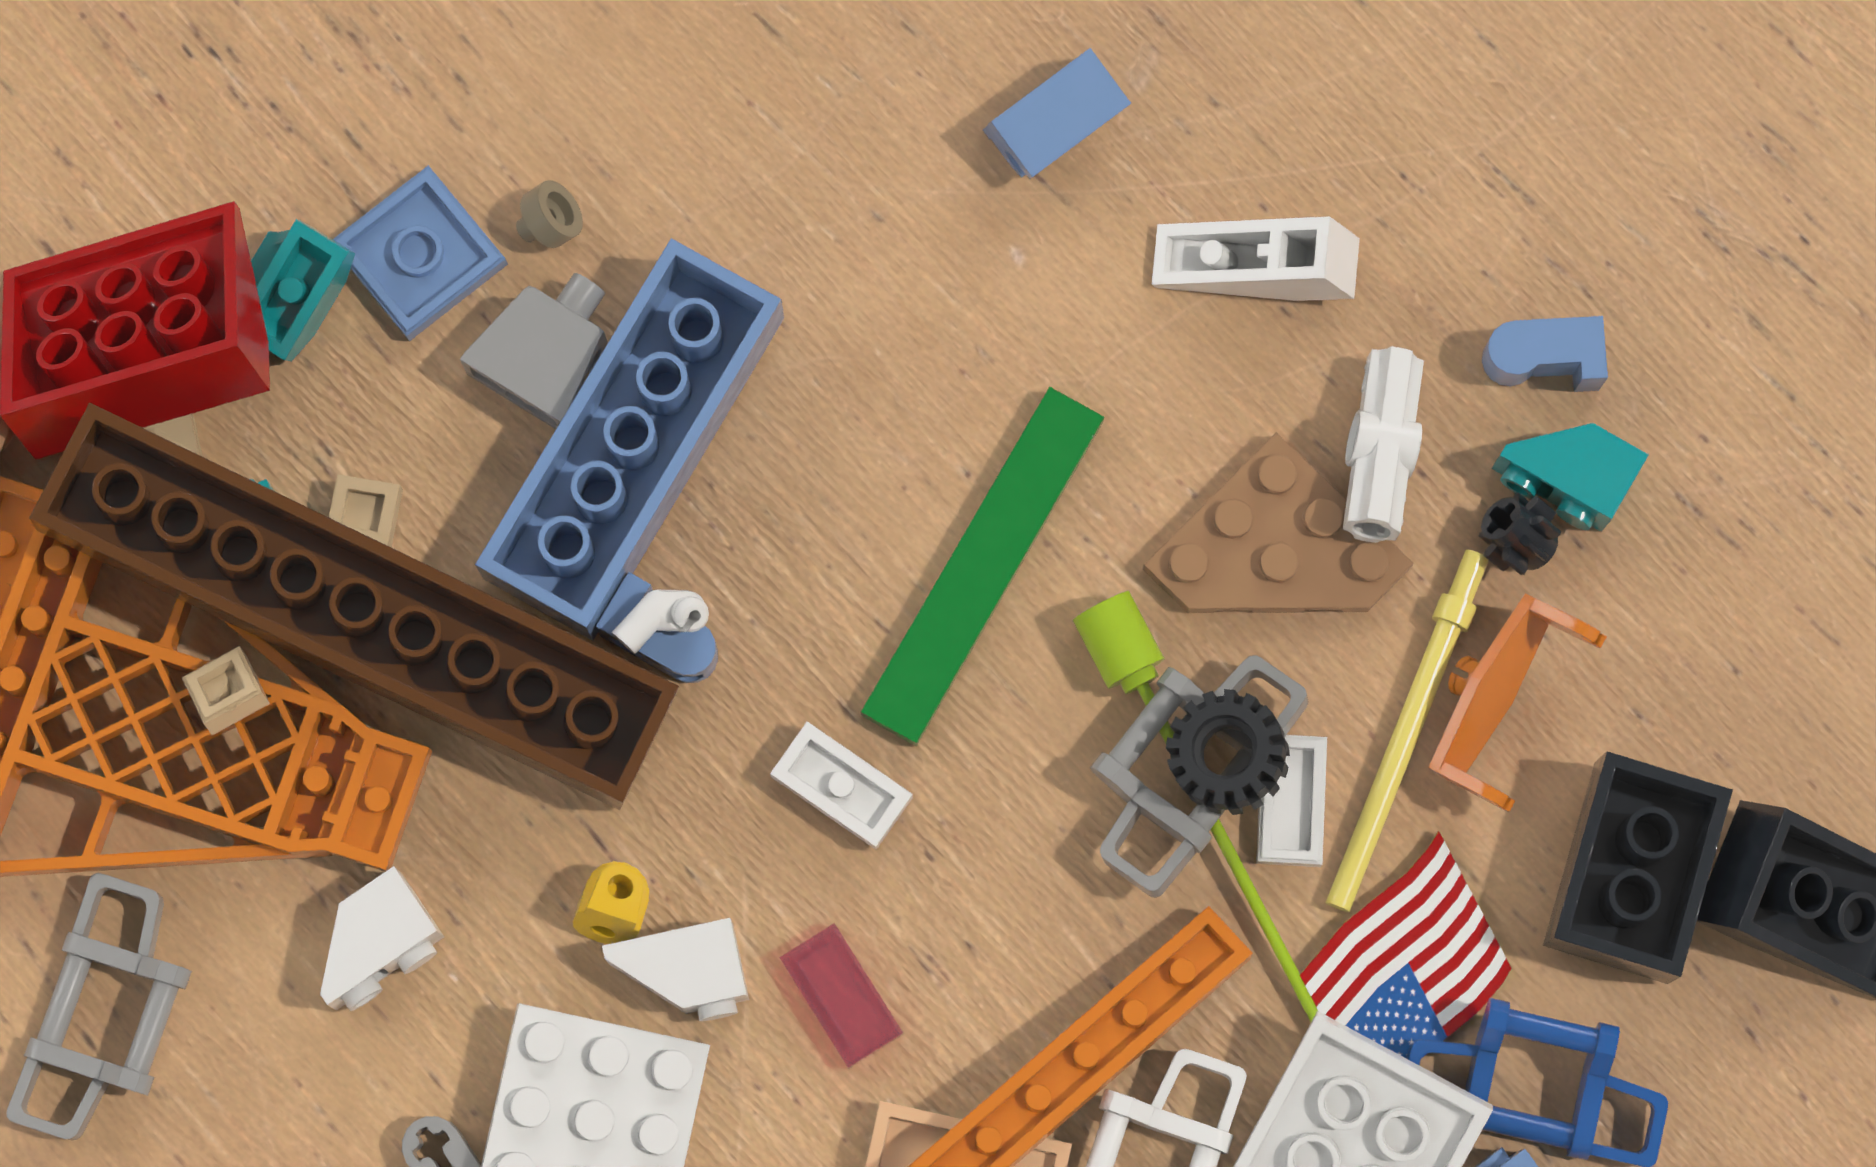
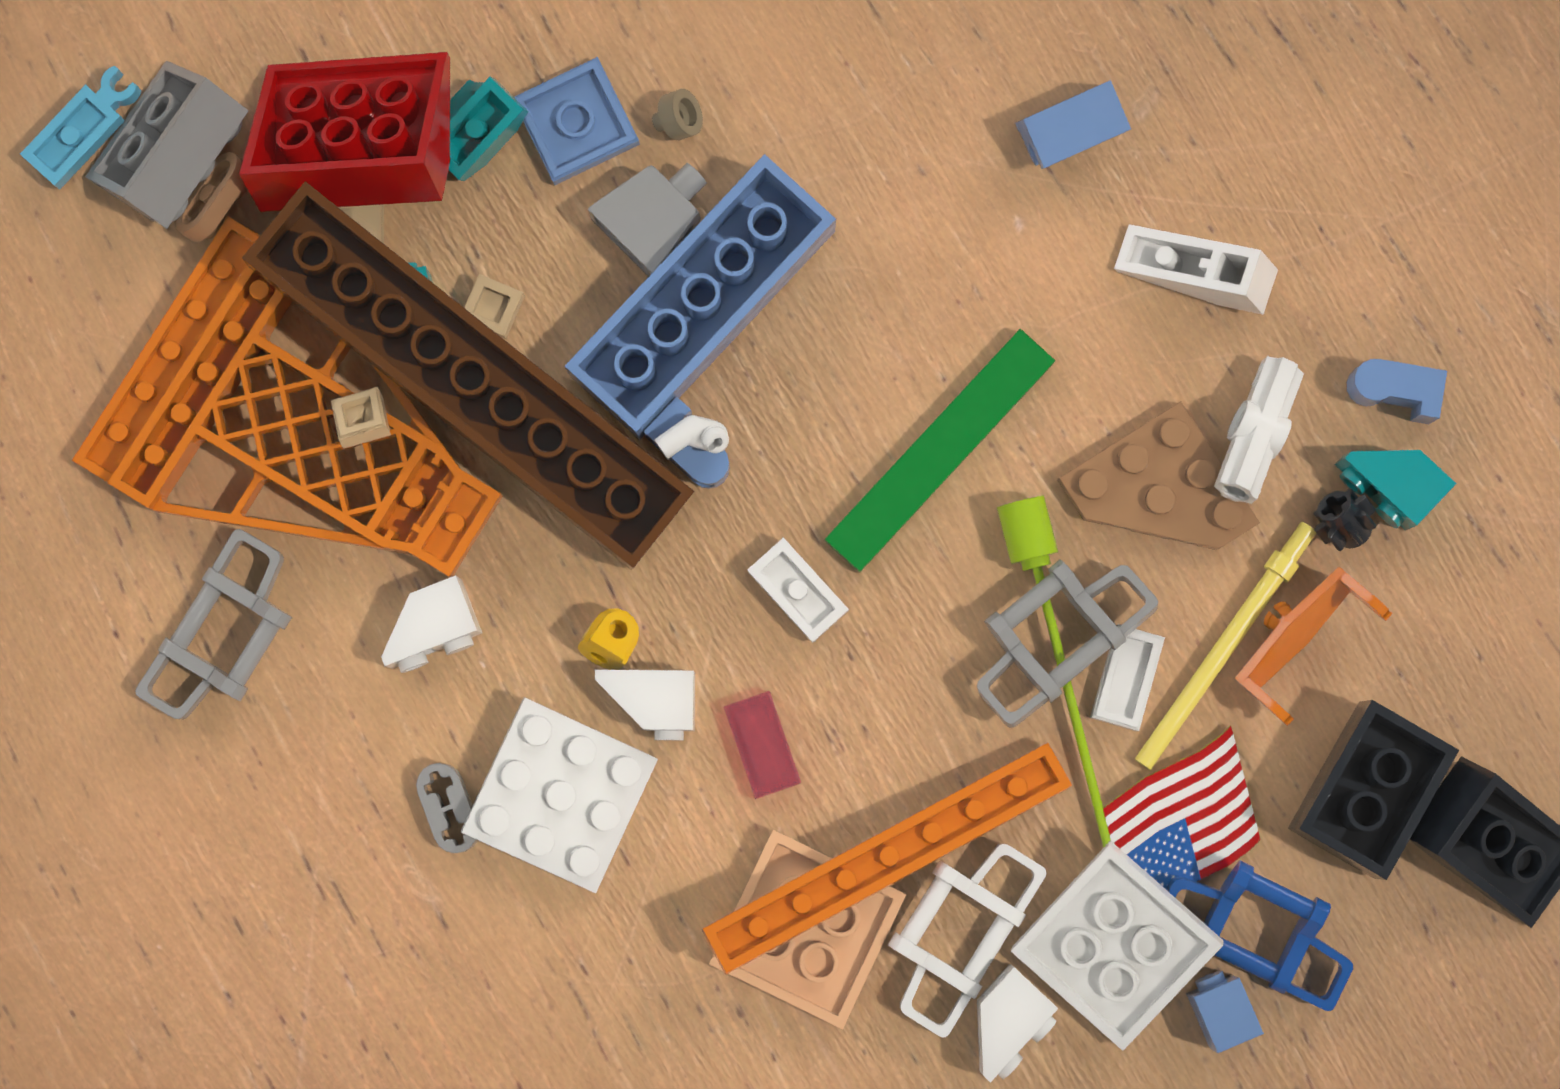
camera: 15 degrees right, 5 degrees up
(1200, 725) = (1089, 604): black tyre -> none

